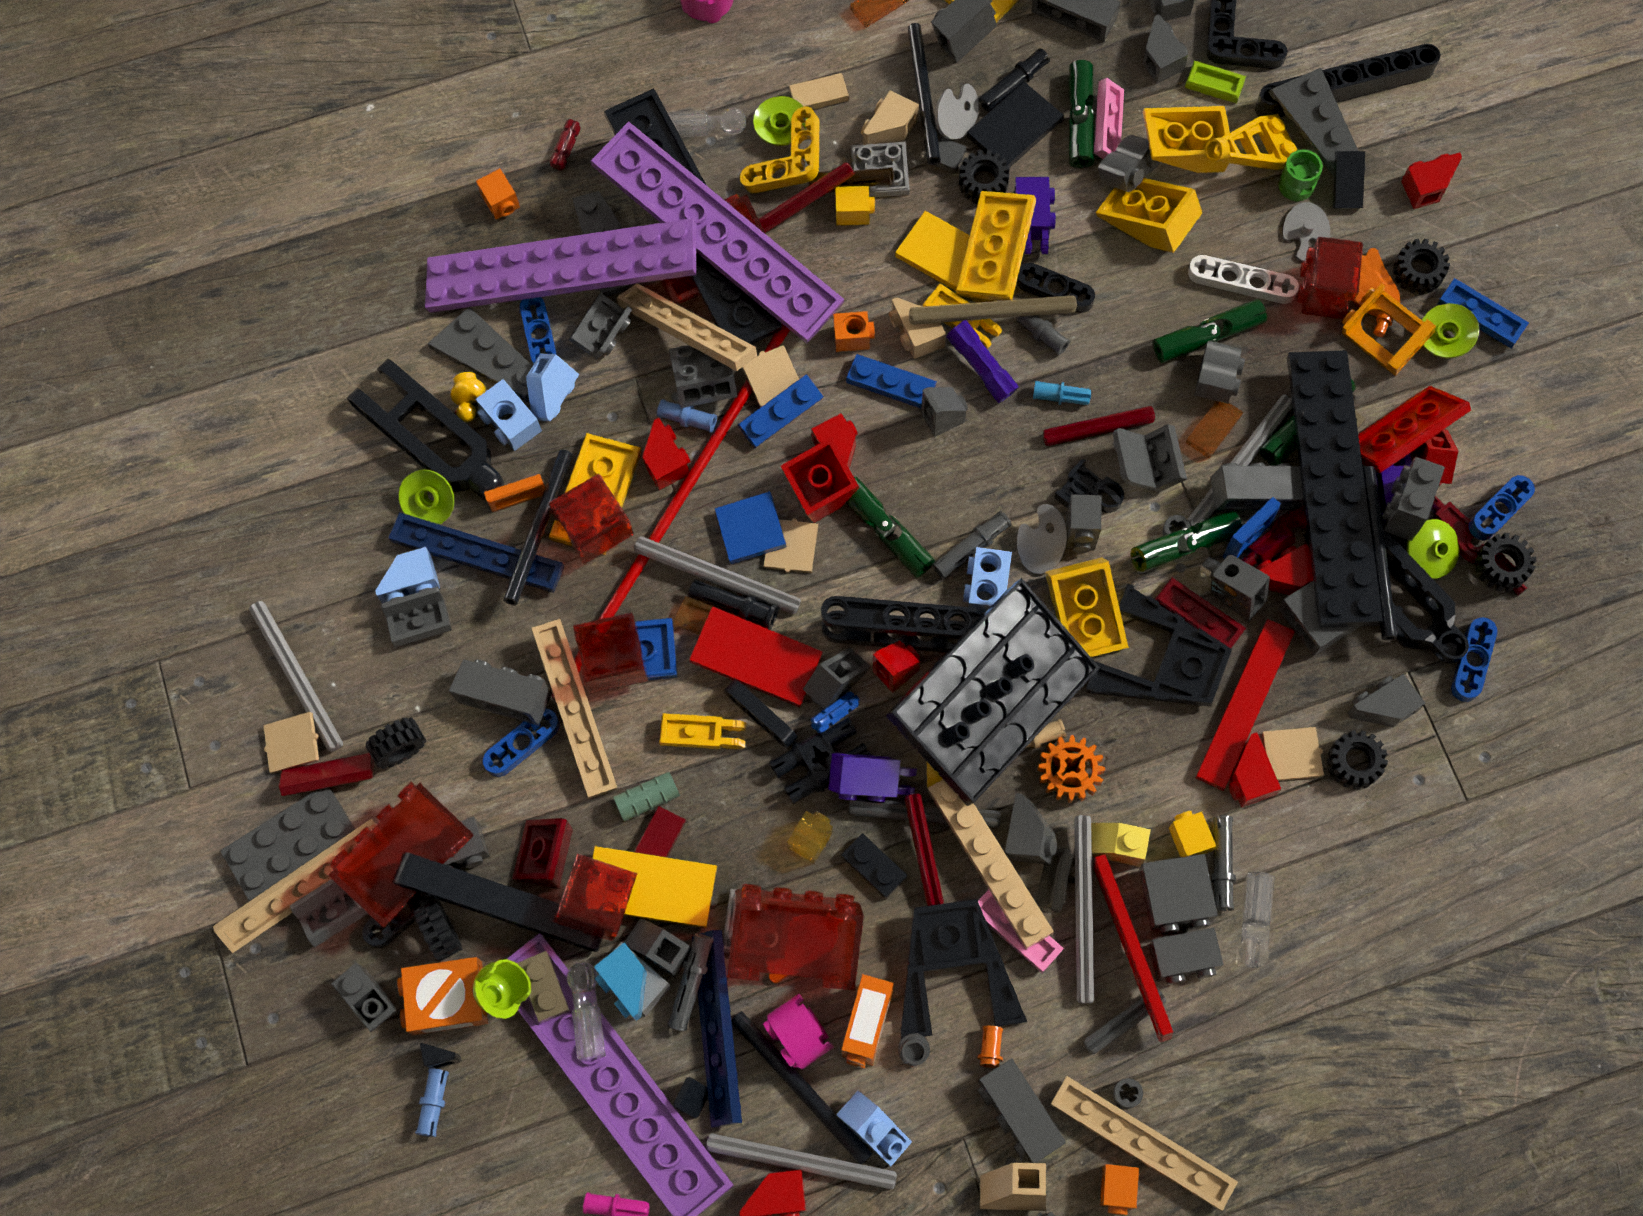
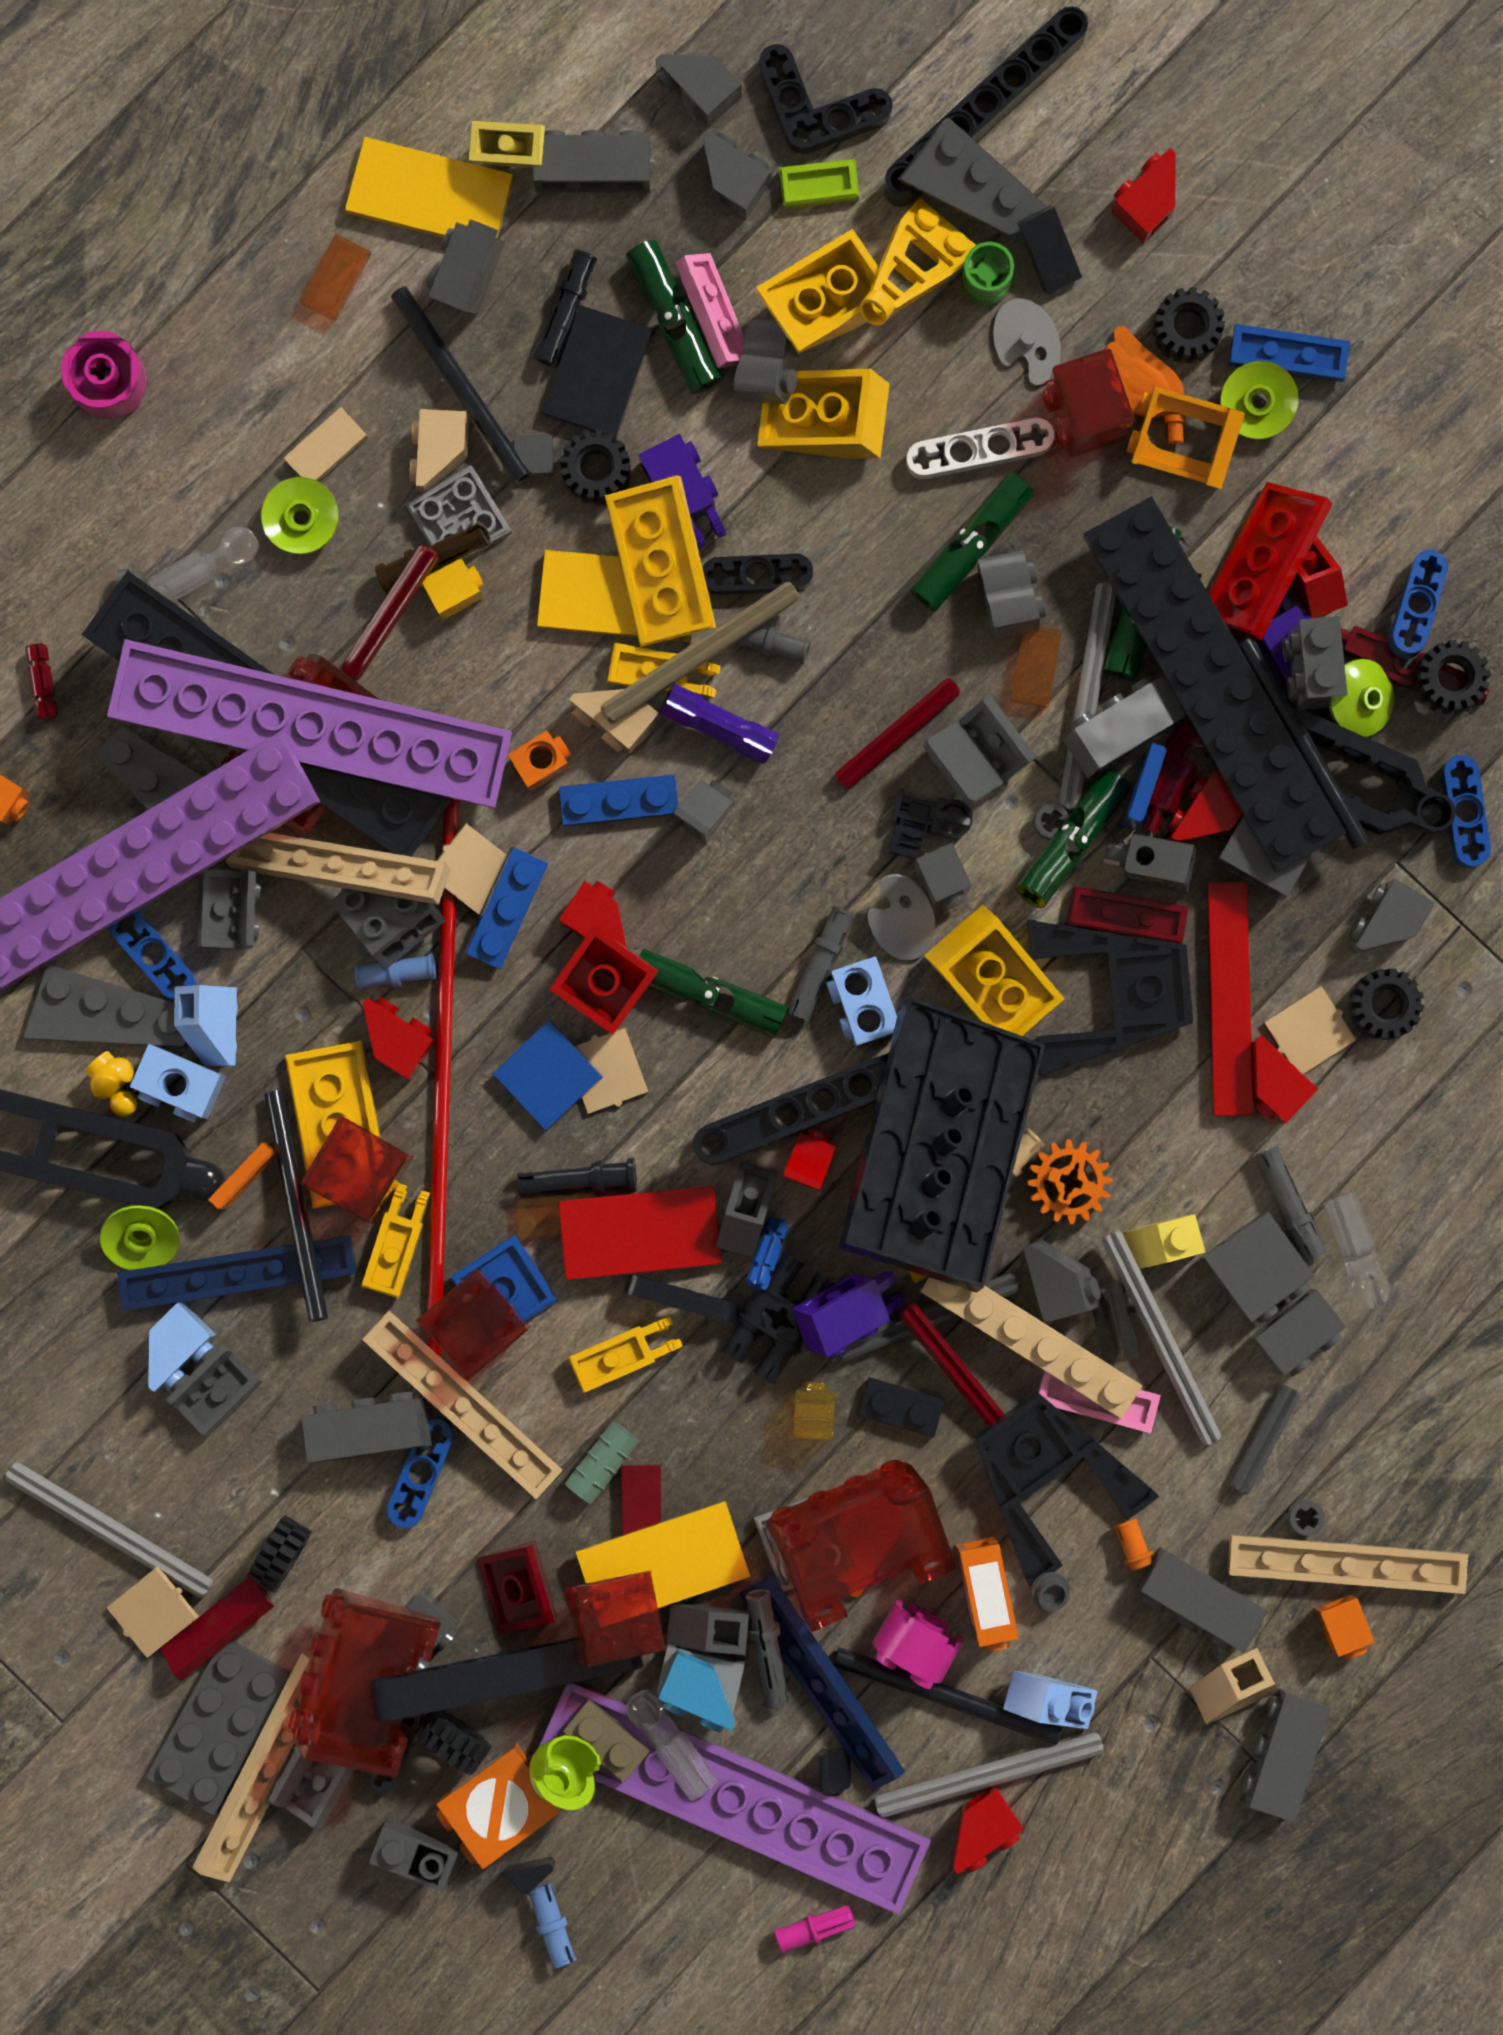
camera: 30 degrees left, 15 degrees up
(589, 585) = (395, 1245): none -> yellow hinge
(717, 575) = (540, 1155): light grey axle -> none
(793, 164) = (352, 571): yellow beam -> none
(951, 117) = (515, 403): light grey piece -> none
(1061, 393) = (833, 713): dark azure axle -> none
(1132, 949) = (1237, 1358): red tile -> none
(1191, 834) = (1241, 1191): yellow brick -> none

